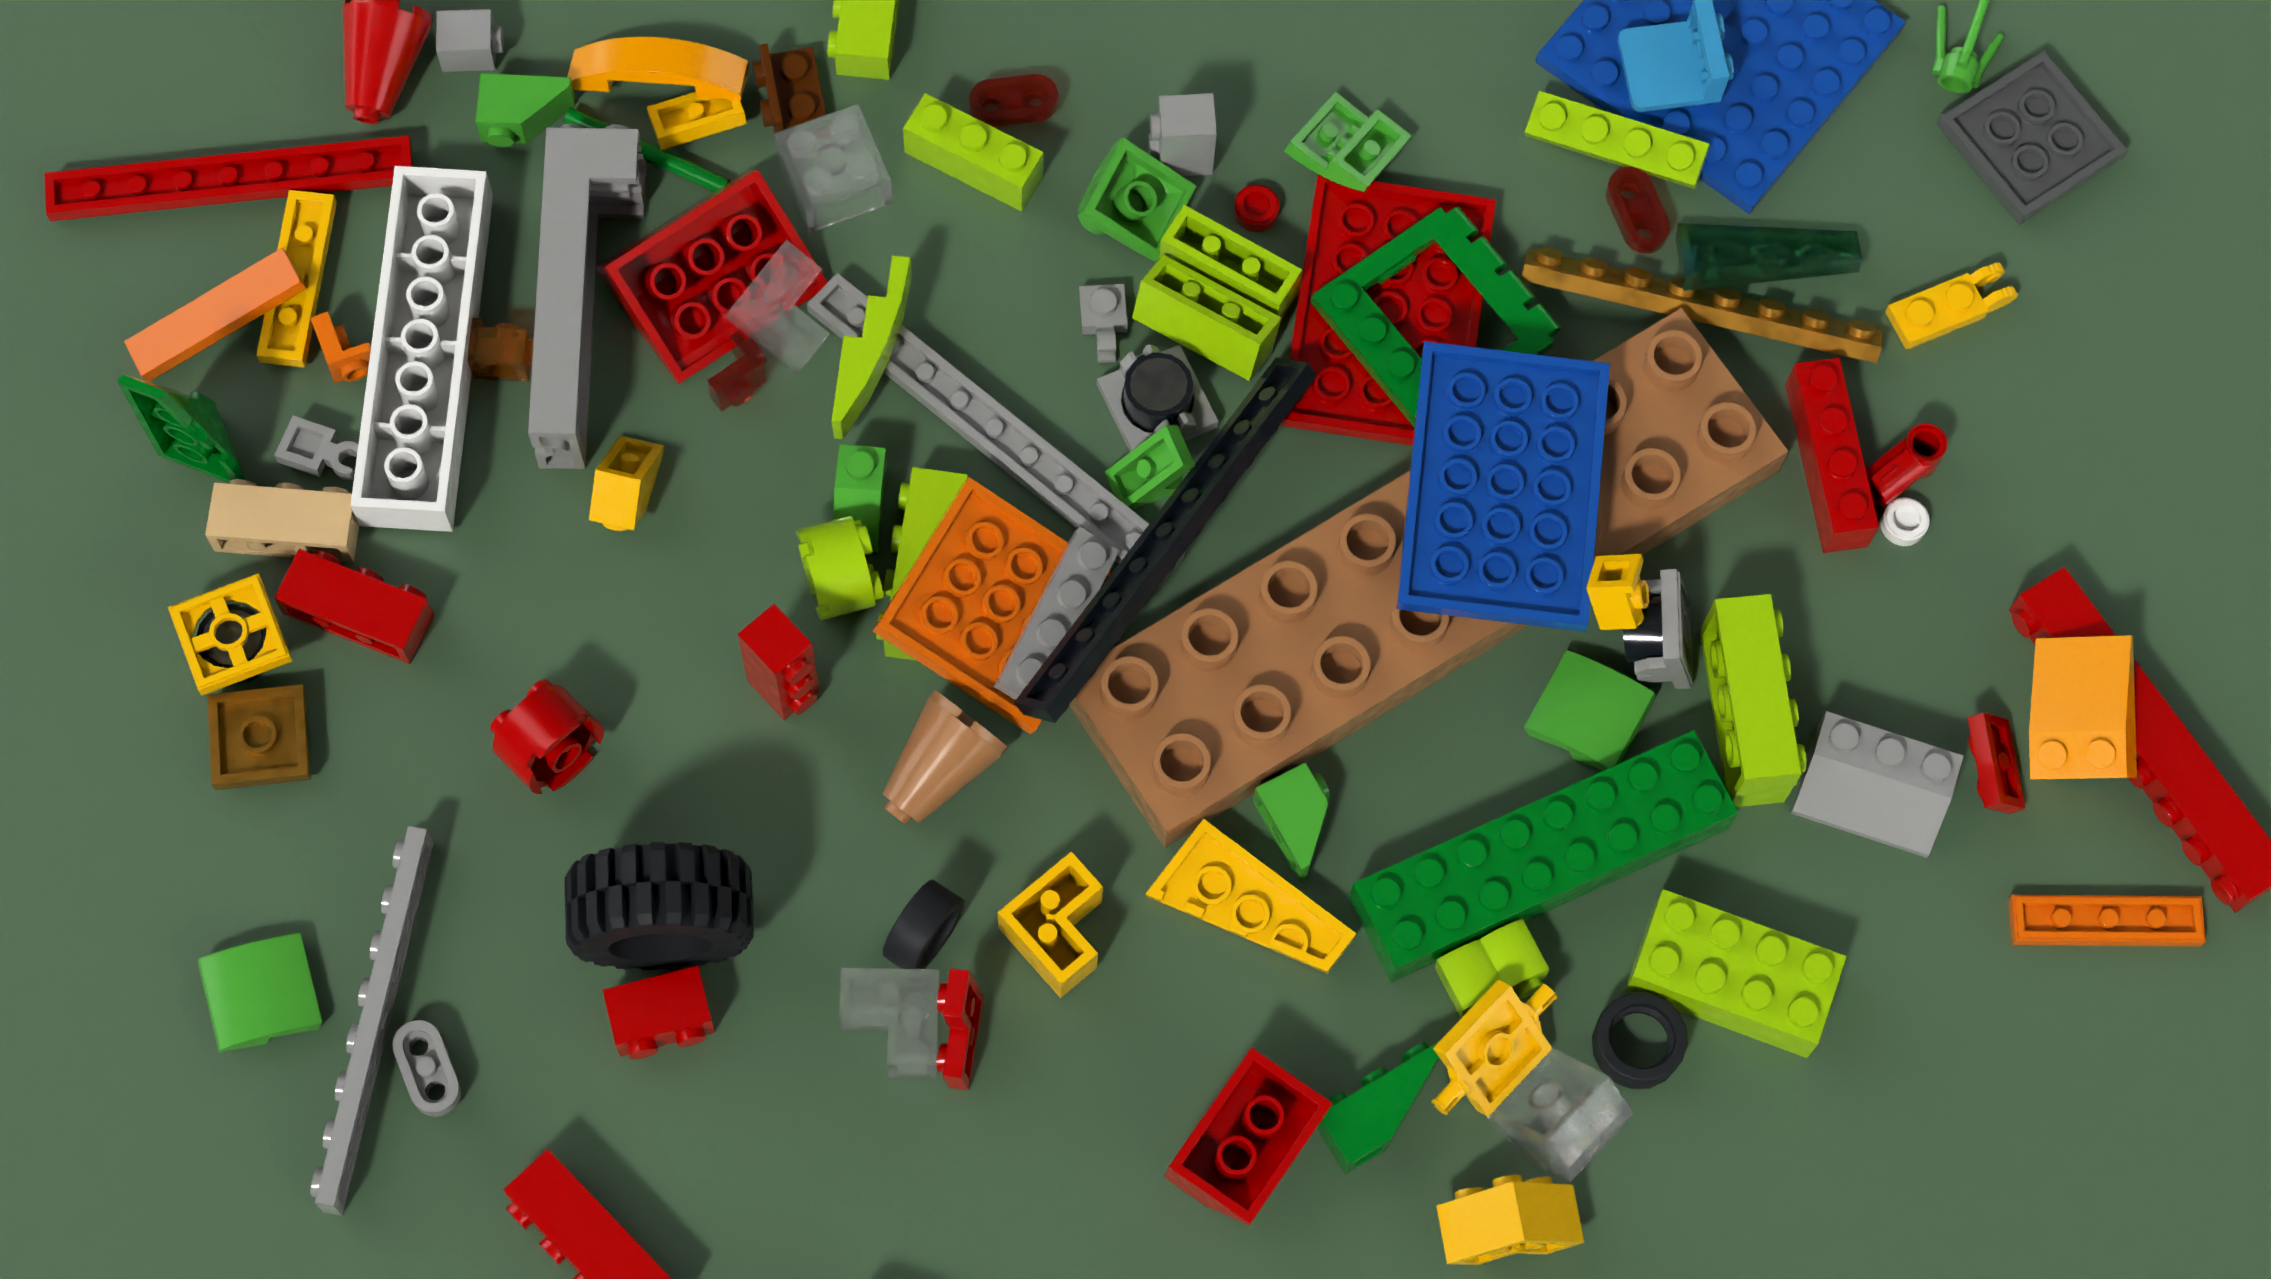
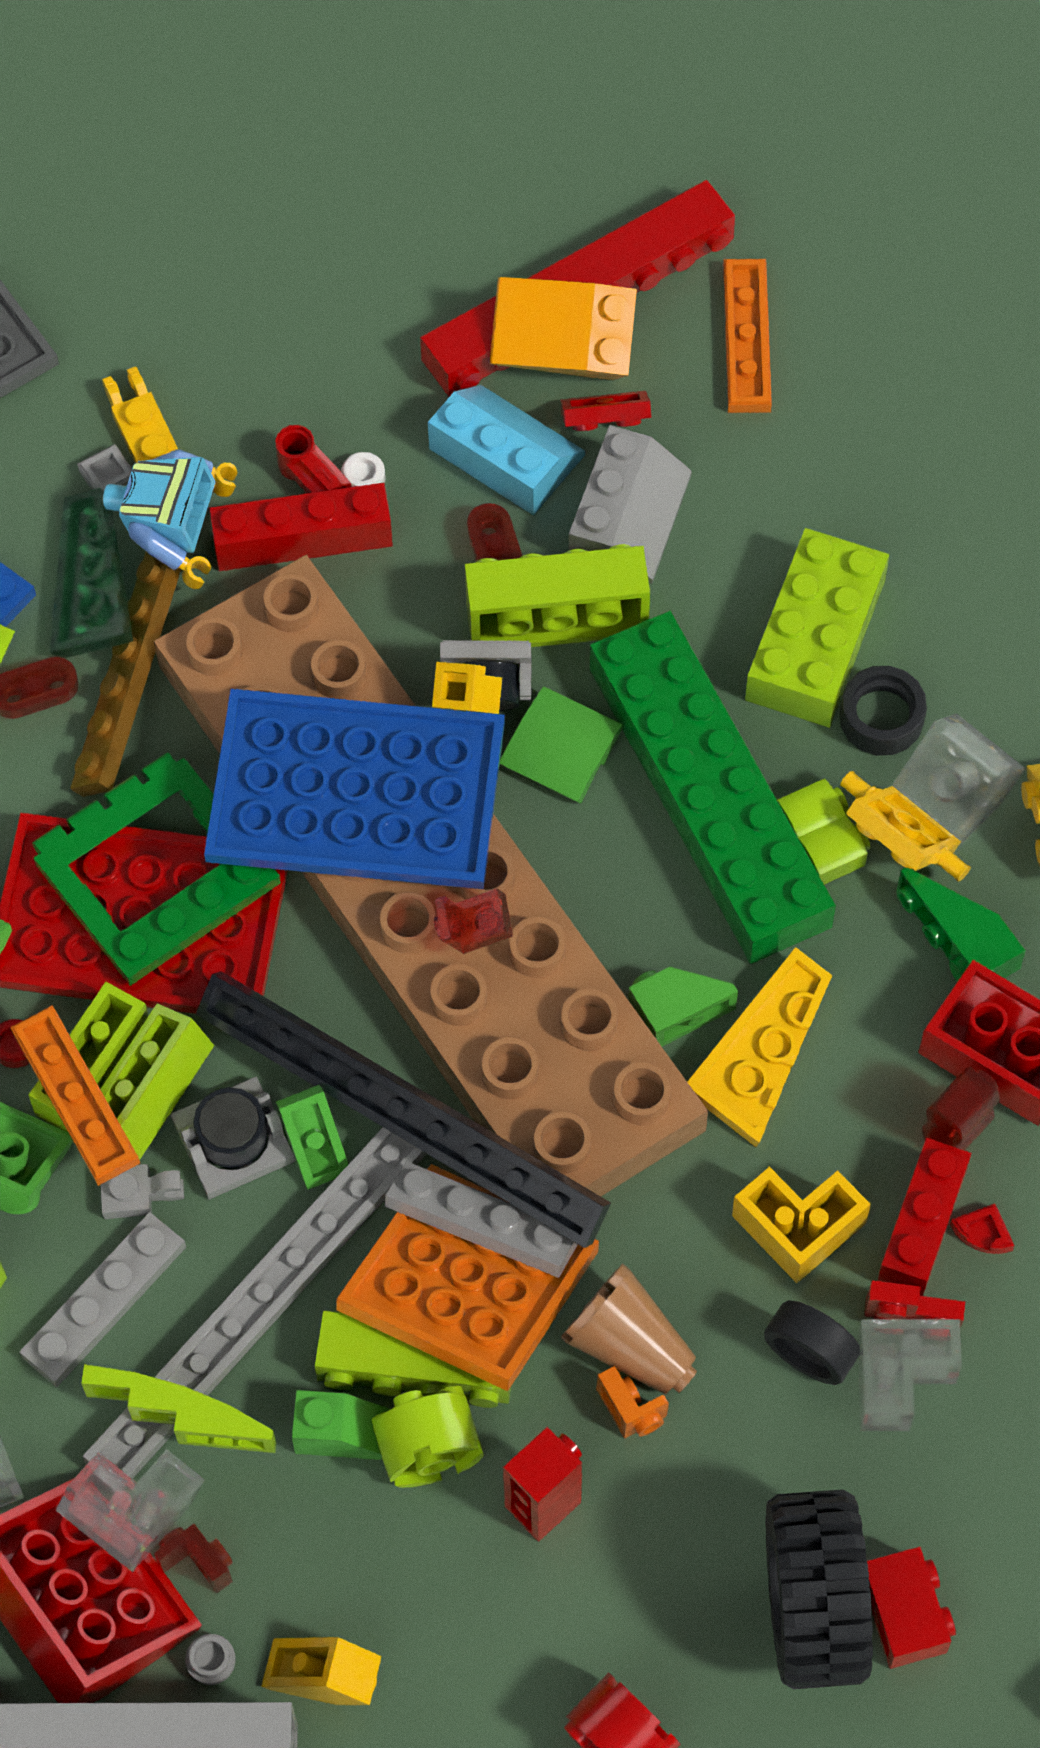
camera: 85 degrees left, 5 degrees down
(645, 389) = (210, 1659): none -> light grey plate
(874, 752) = (621, 1401): none -> orange bracket
(996, 292) = (103, 1299): none -> light grey plate
(1051, 1116) = (983, 1230): none -> red tile
(1058, 1049) = (925, 1215): none -> red brick
(1166, 1087) = (962, 1109): none -> clear red brick
(1180, 242) = (75, 1095): none -> orange tile
(1355, 591) = (473, 921): none -> clear red bracket
(1820, 647) = (498, 545): none -> clear red plate
(1837, 315) = (167, 507): none -> torso
(1891, 274) = (105, 468): none -> light grey tile
(1948, 660) = (502, 446): none -> medium azure slope

